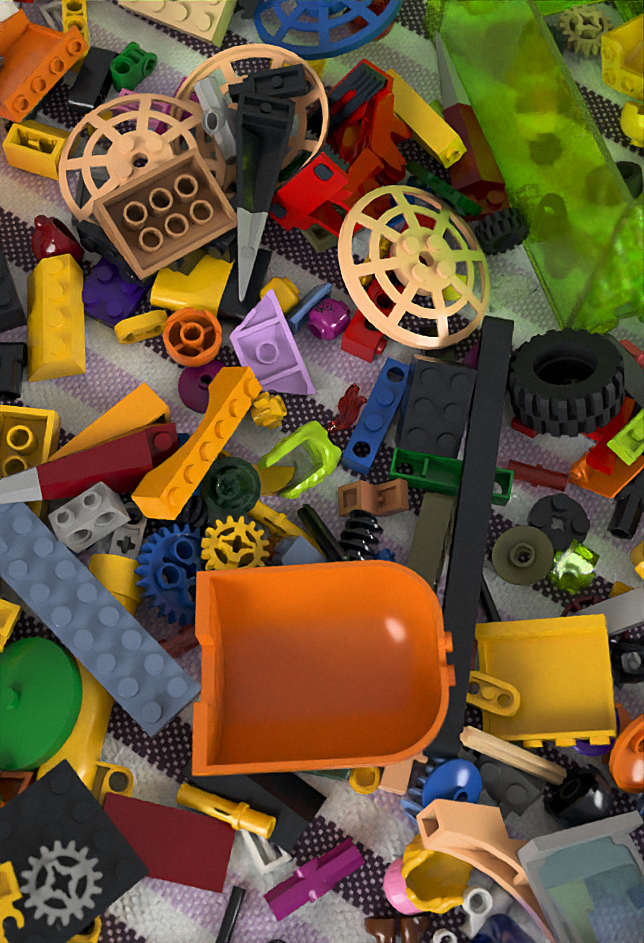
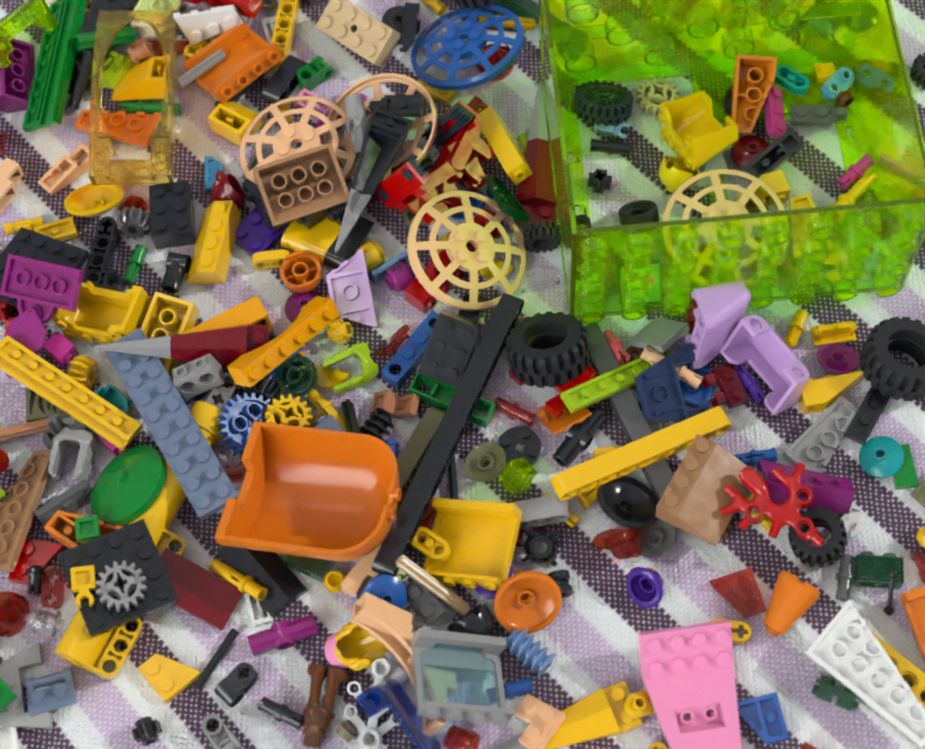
camera: 25 degrees right, 5 degrees down
(24, 221) = (211, 167): none -> dark azure tile

